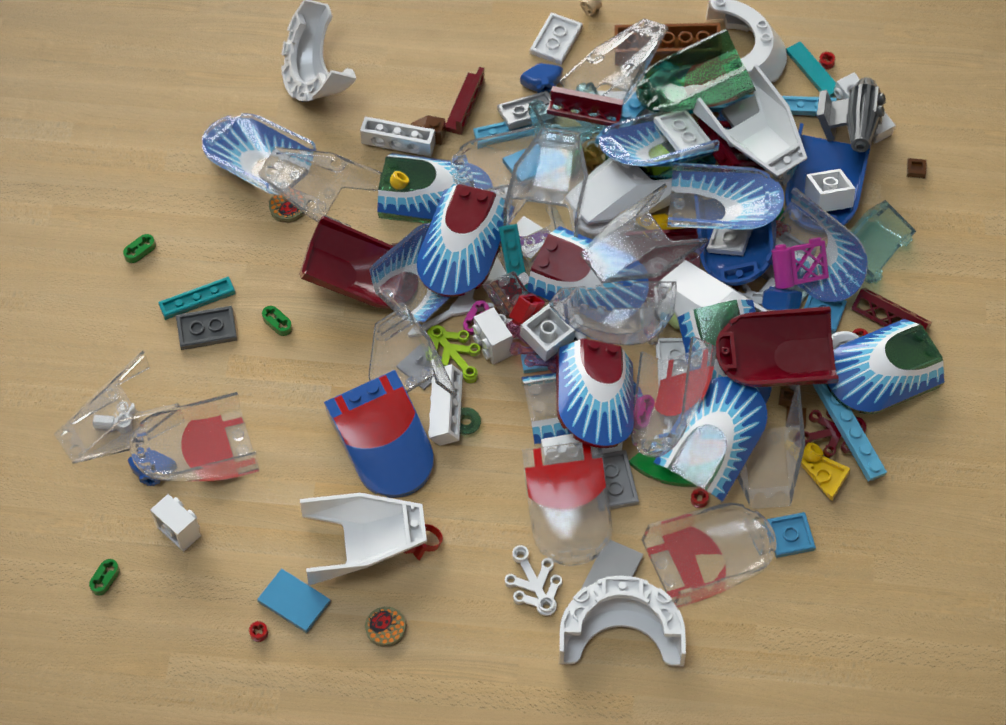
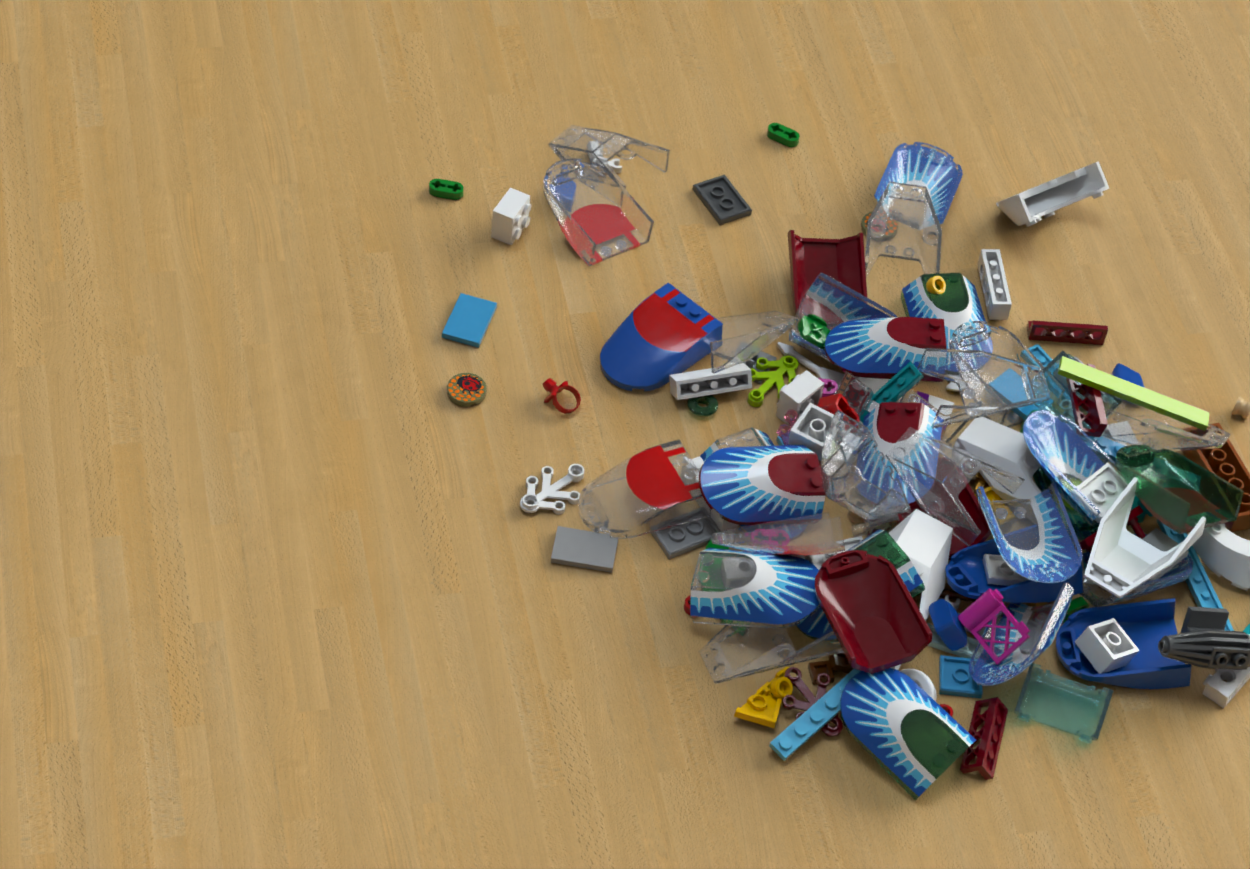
camera: 65 degrees right, 10 degrees down
(197, 298) = (750, 186): teal tile -> none
(258, 637) = (430, 307): red bush -> none
(279, 318) = (748, 244): green beam -> none
(372, 529) = (556, 359): white windscreen -> none
(417, 297) = (813, 330): none -> green tile
(435, 123) = (1019, 312): reddish brown slope -> none
(556, 38) = (1187, 388): white tile -> none
(591, 70) = (1133, 393): none -> tile
(622, 603) = (538, 539): white windscreen -> none
(709, 550) = (634, 619): clear windscreen -> none
(792, 535) = (682, 689): dark azure tile -> none
(916, 168) = (1188, 735): reddish brown tile -> none

